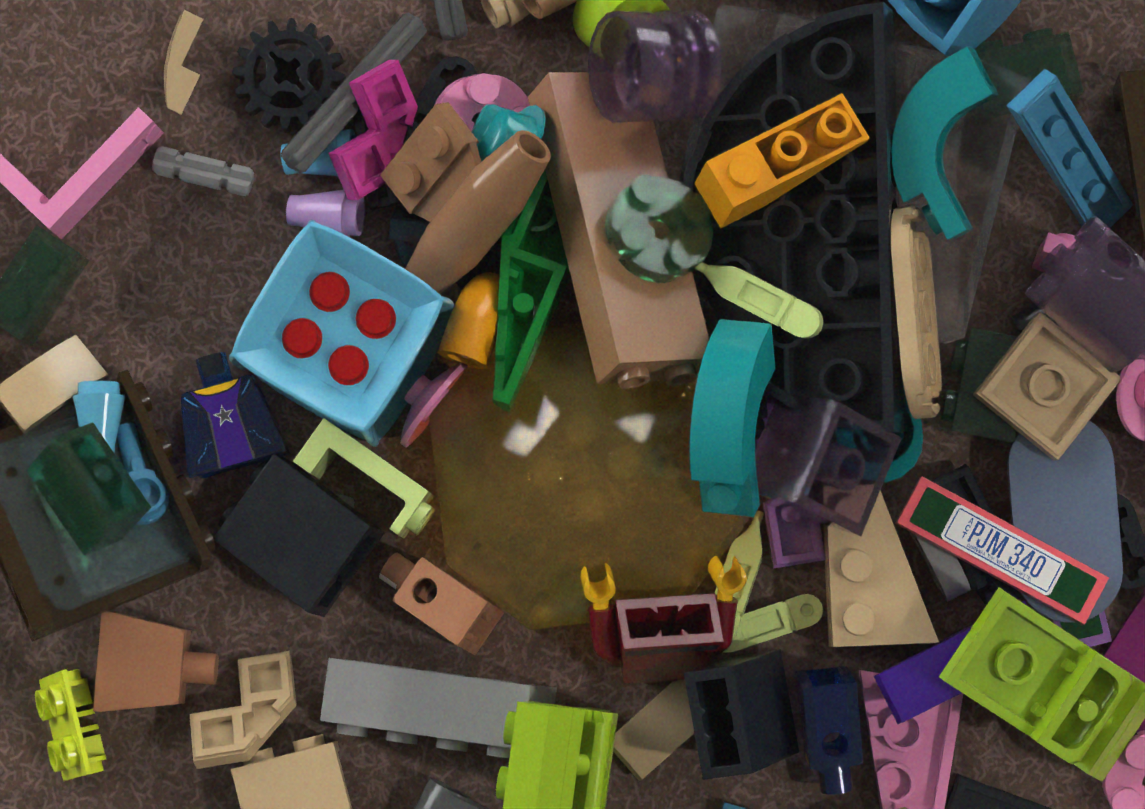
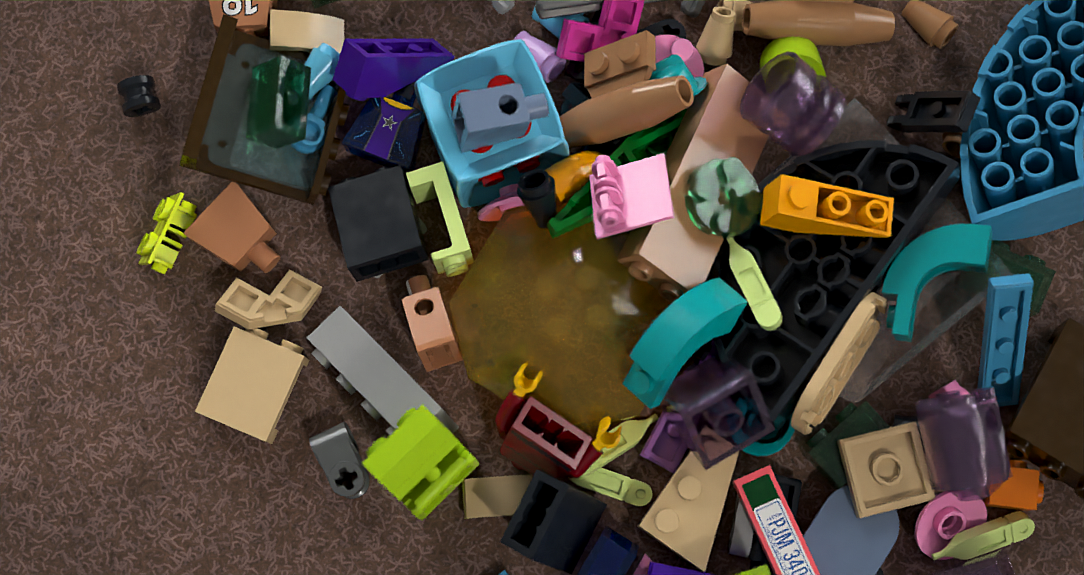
camera: 35 degrees right, 5 degrees down
(172, 353) = (385, 65): none -> dark purple slope
(339, 348) = (482, 119): none -> sand blue torso
(459, 377) = (538, 195): none -> black cone
(510, 44) = (717, 37): none -> tan cone
(558, 303) = (629, 194): none -> bright pink hinge

